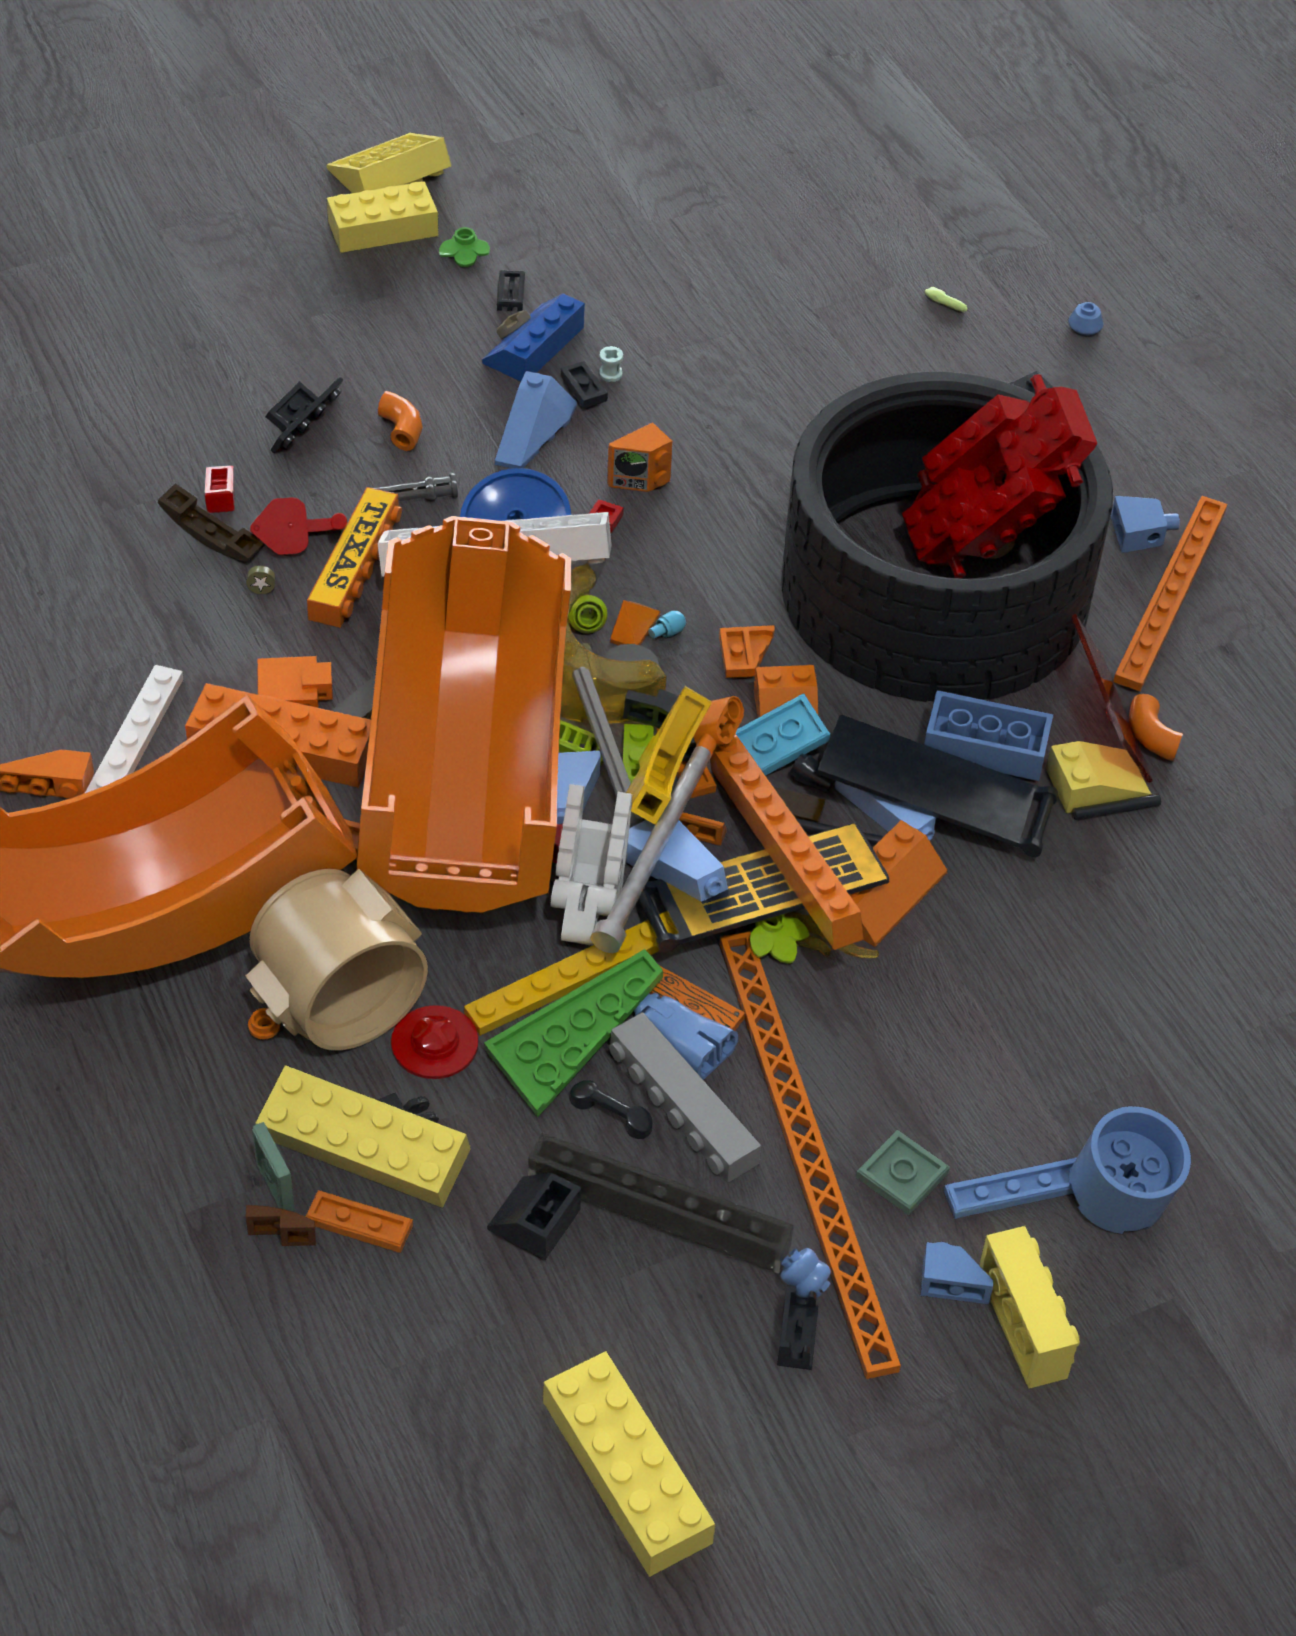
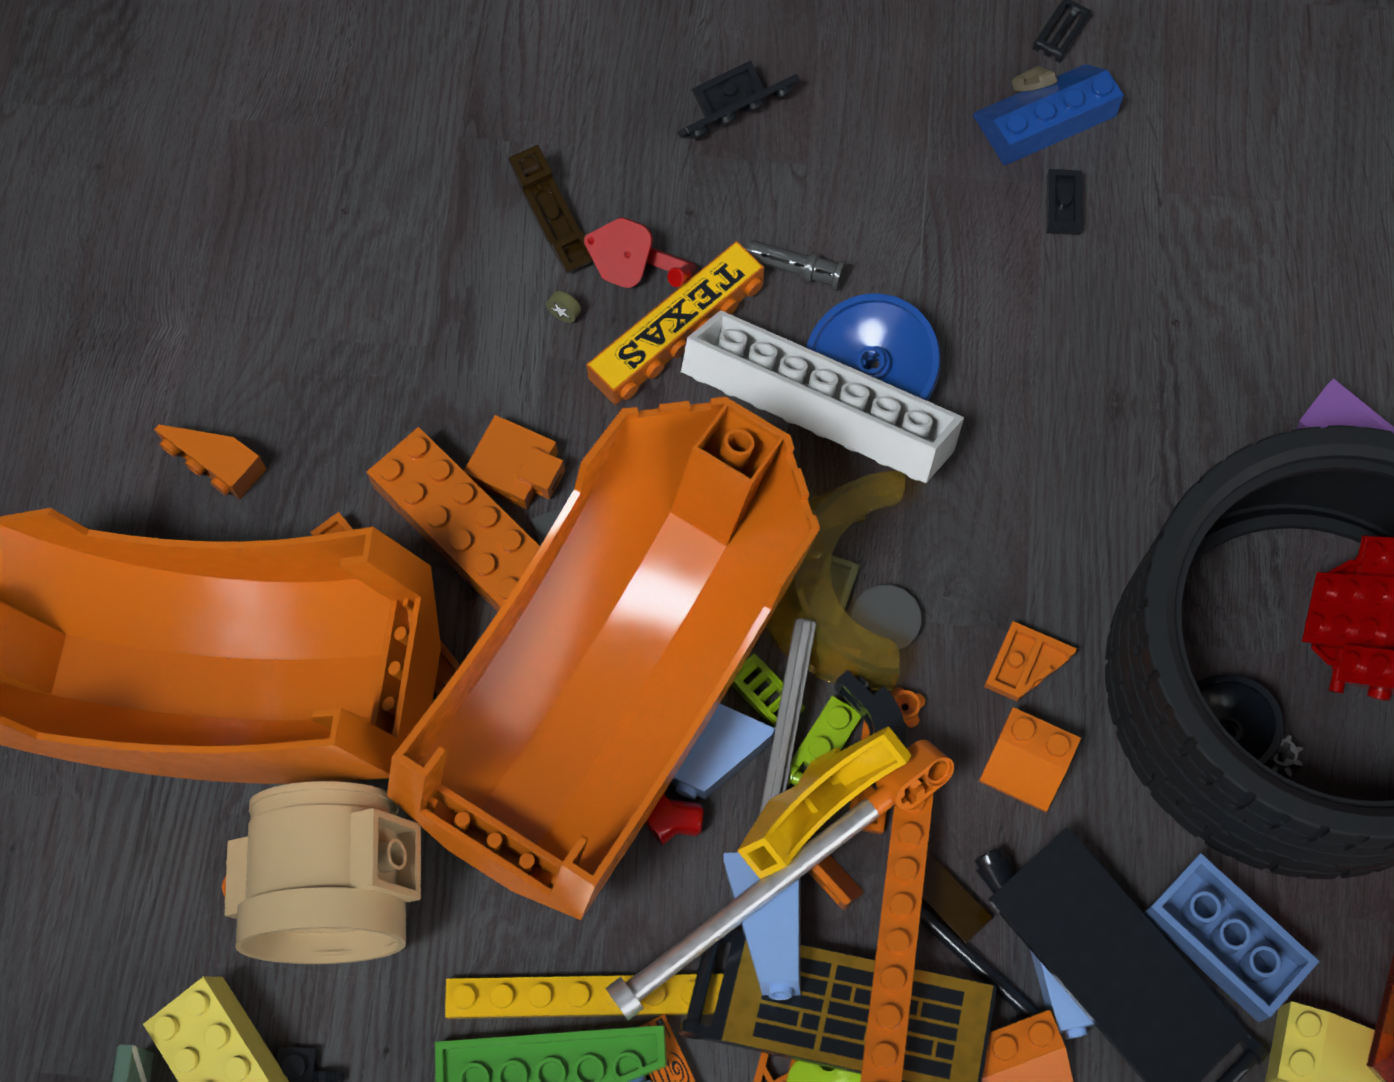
camera: 35 degrees right, 20 degrees up
(138, 726) = (308, 459): white plate -> none
(219, 489) = (589, 178): red slope -> none
(404, 416) = (839, 159): orange cylinder -> none
(434, 1042) = (396, 1002): red hat -> none
(535, 417) = (988, 219): medium blue wedge -> none
(588, 622) = (878, 528): lime cone -> none
(589, 865) = (669, 894): white piece -> none
(610, 366) = (1110, 189): light aqua bush -> none
(615, 512) = (979, 397): red plate -> none
(633, 623) = (926, 561): orange slope -> none
(640, 460) = (1058, 346): orange slope -> none
(668, 625) = (961, 583): medium azure cylinder -> none
(783, 734) = (990, 809): medium azure tile -> none

